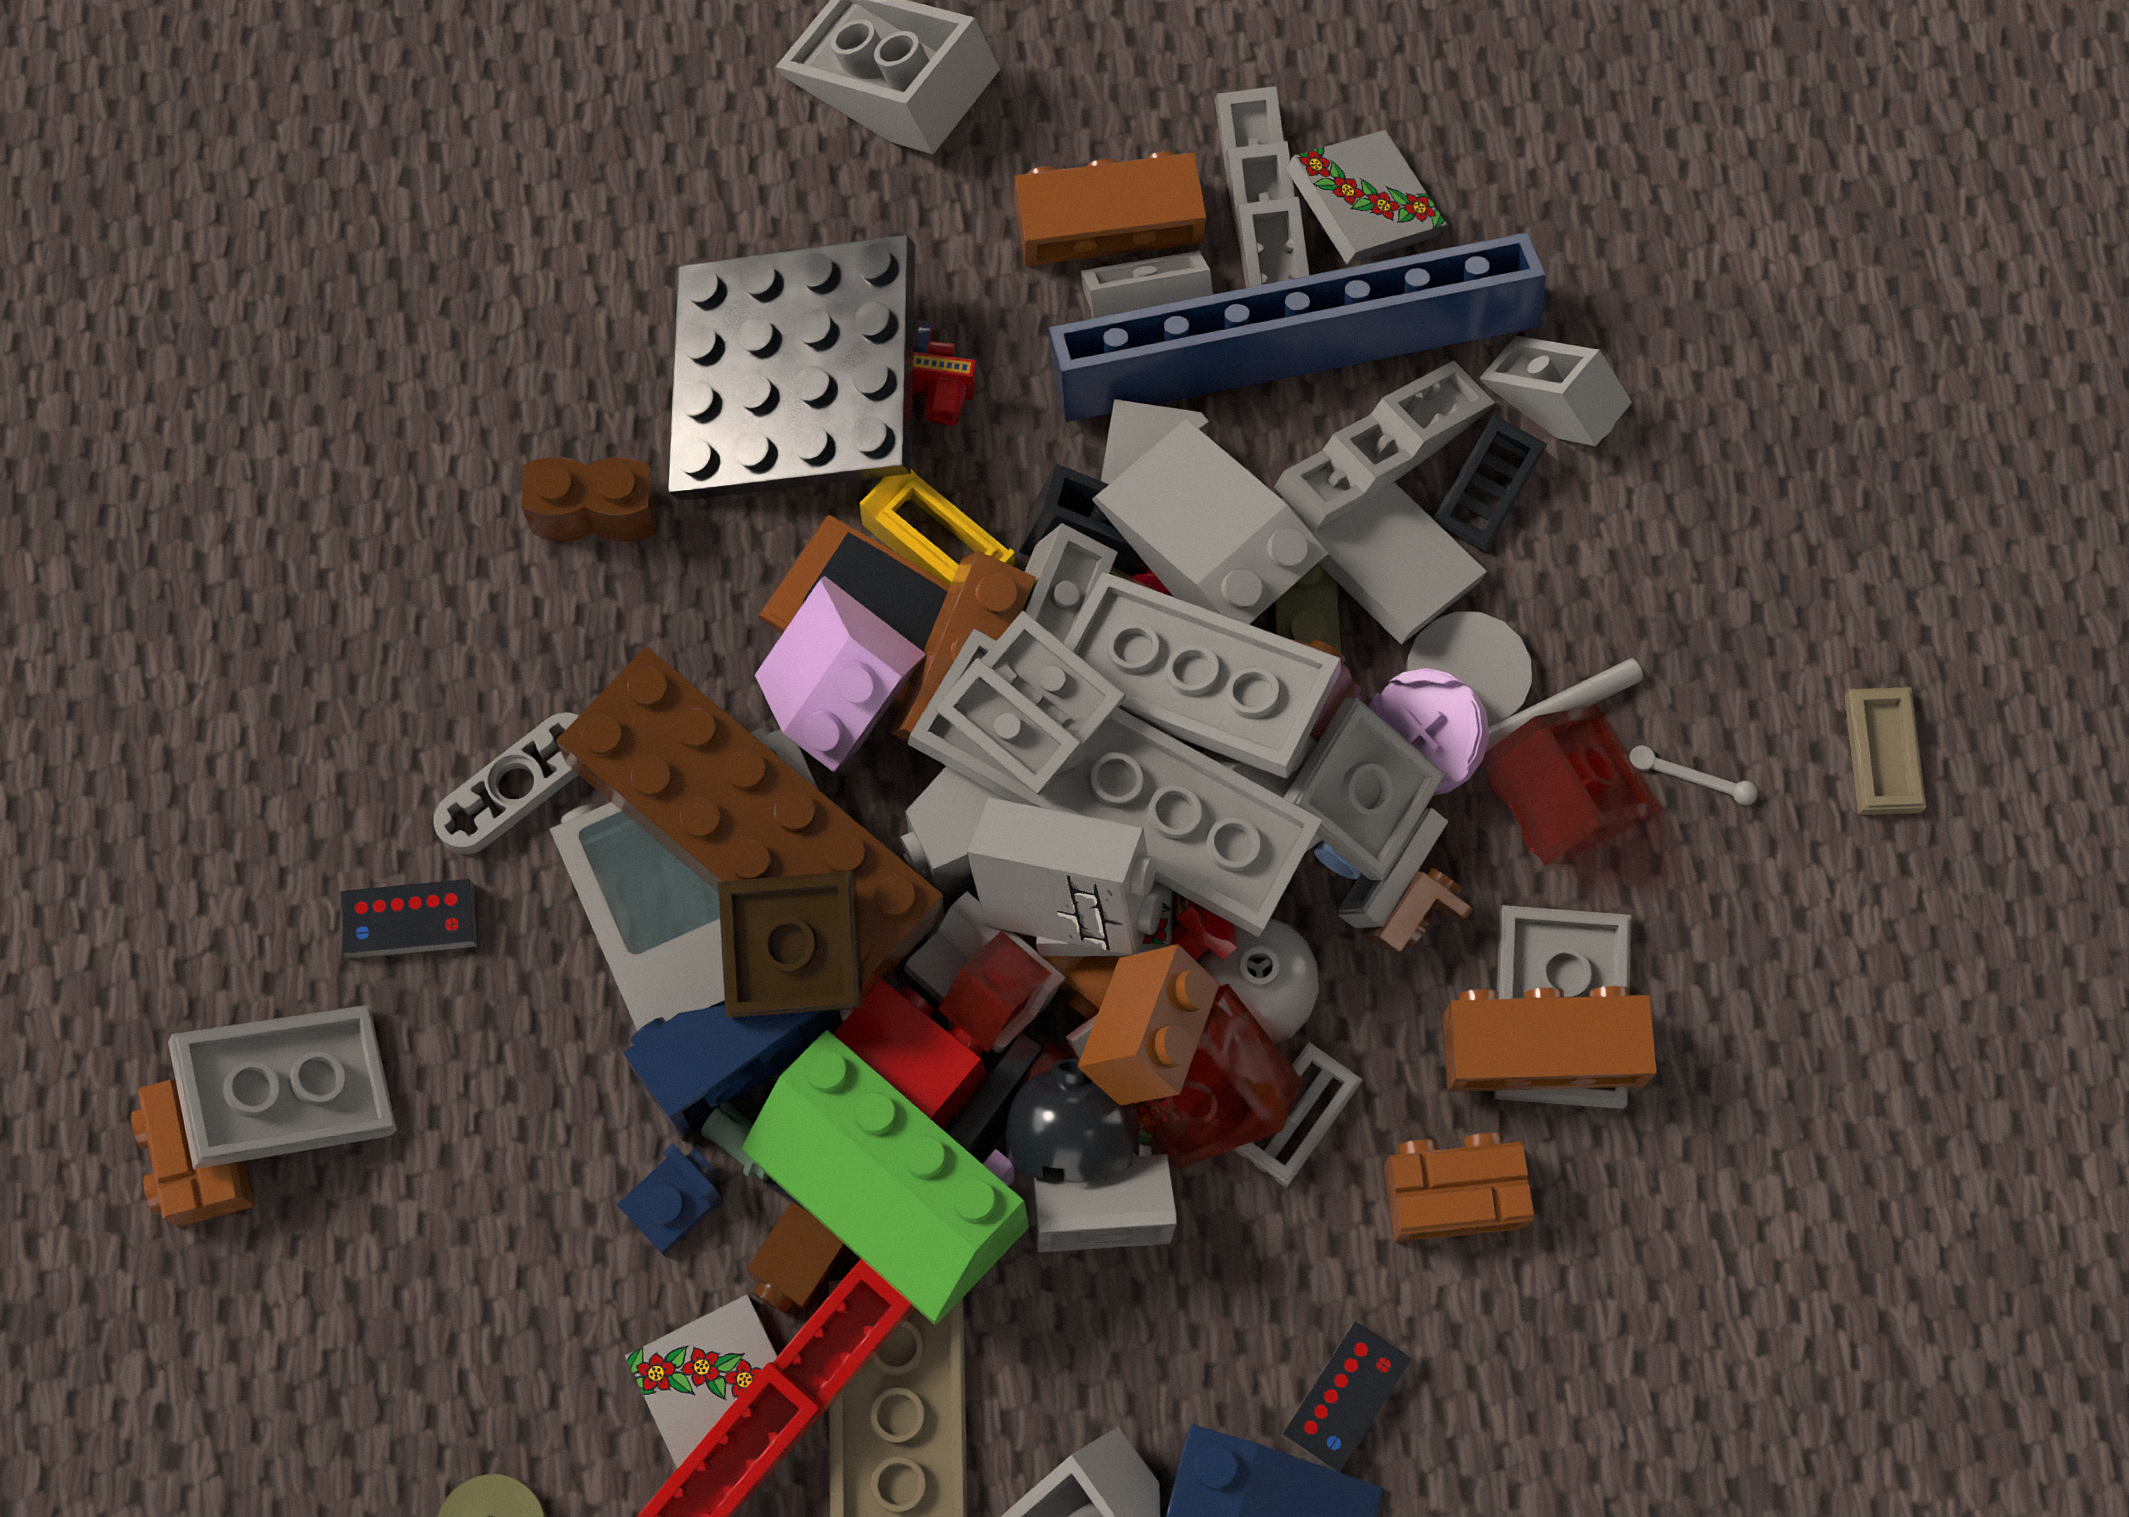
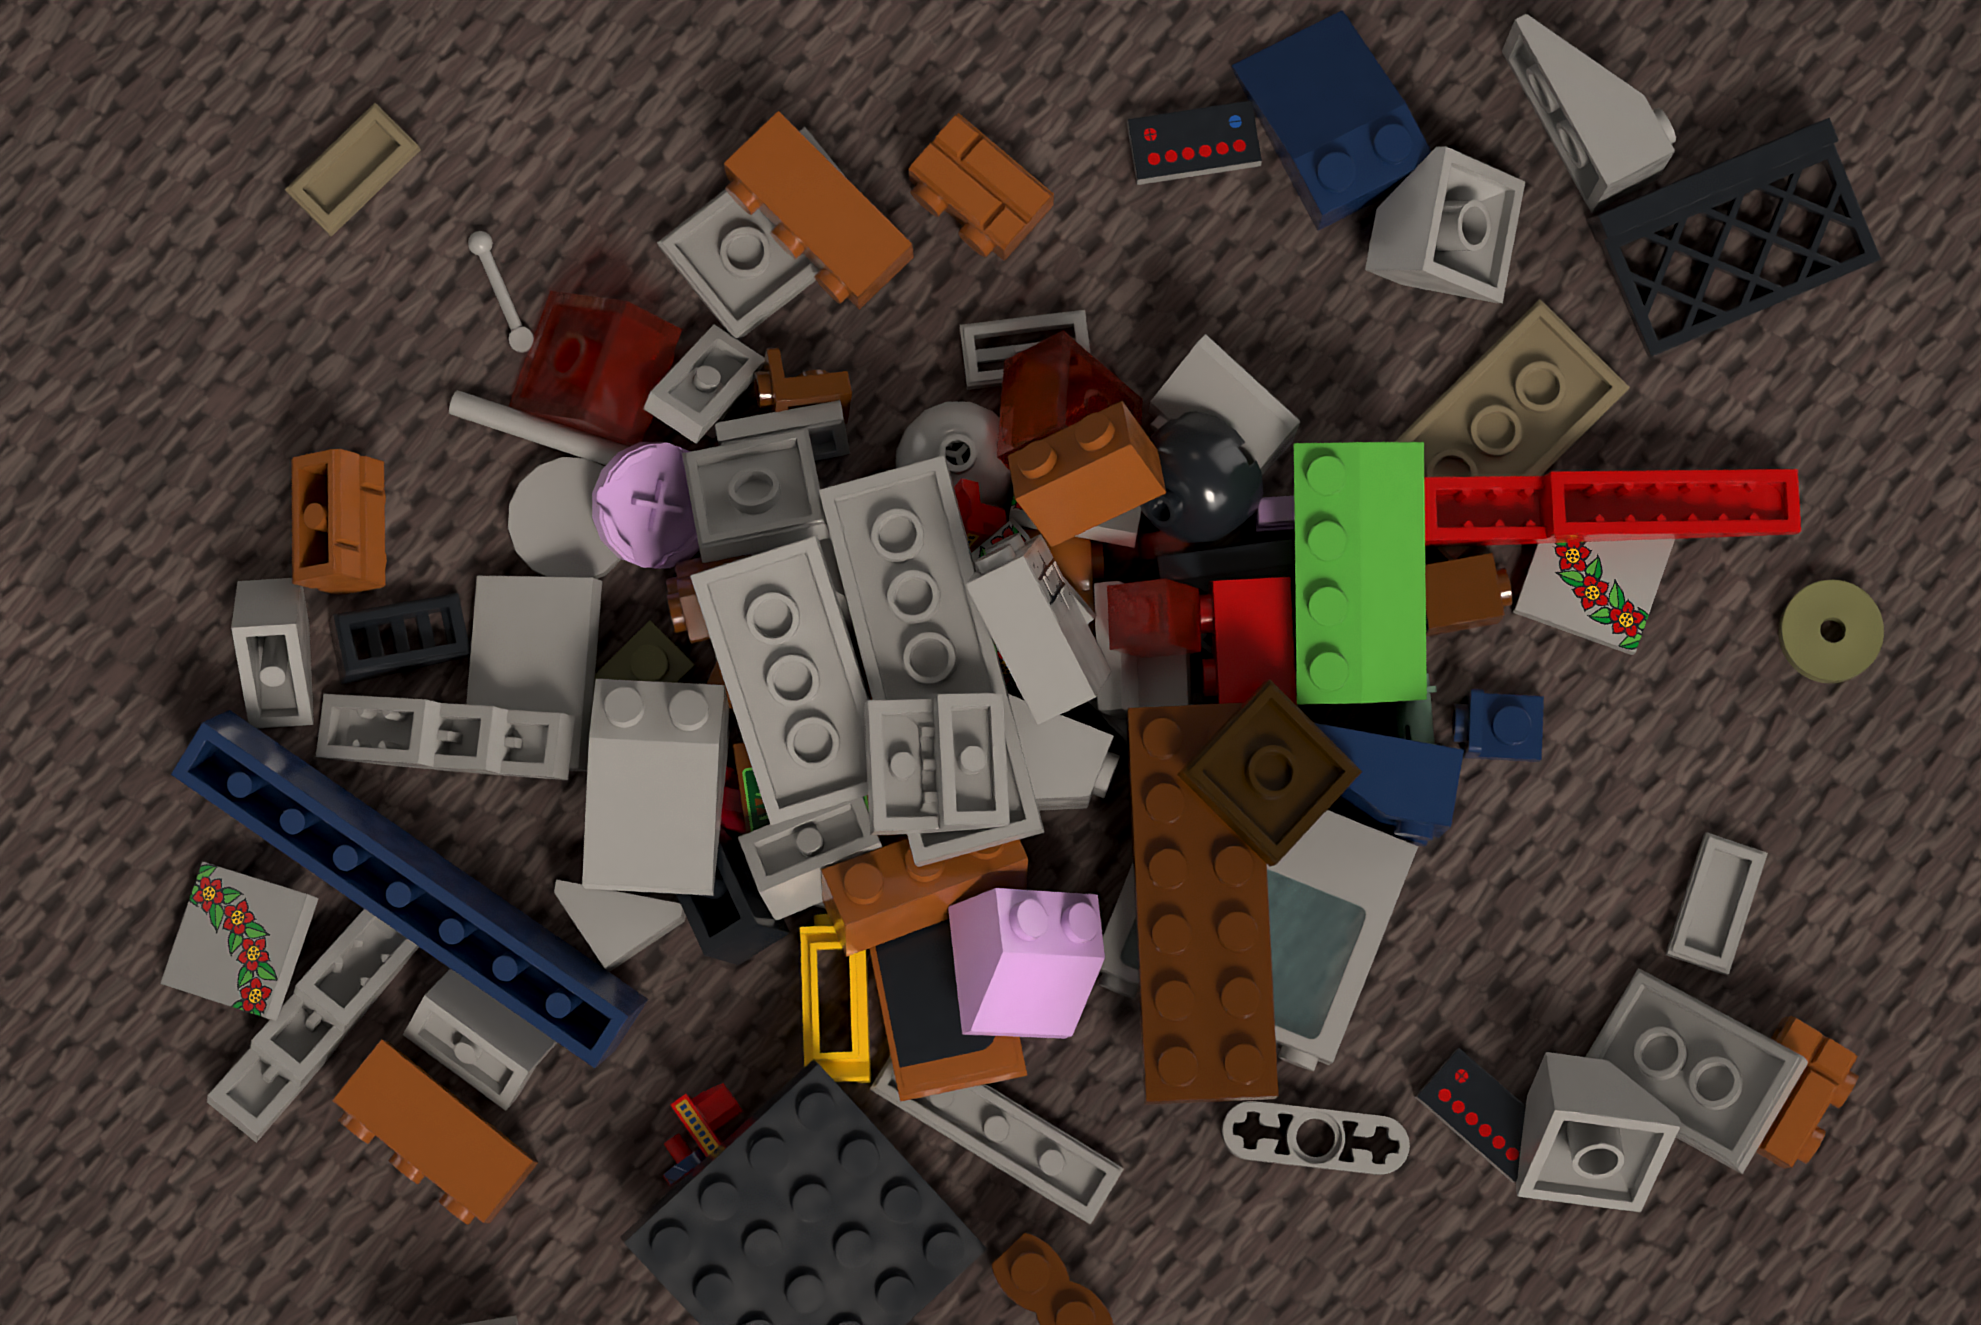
camera: 130 degrees left, 10 degrees up
(314, 969) = (1592, 1135): none -> light grey slope
(383, 1236) = (1716, 903): none -> light grey tile
(711, 581) = (1014, 1143): none -> light grey tile
(1485, 842) = (705, 385): none -> light grey slope
(1613, 503) = (338, 522): none -> dark orange brick

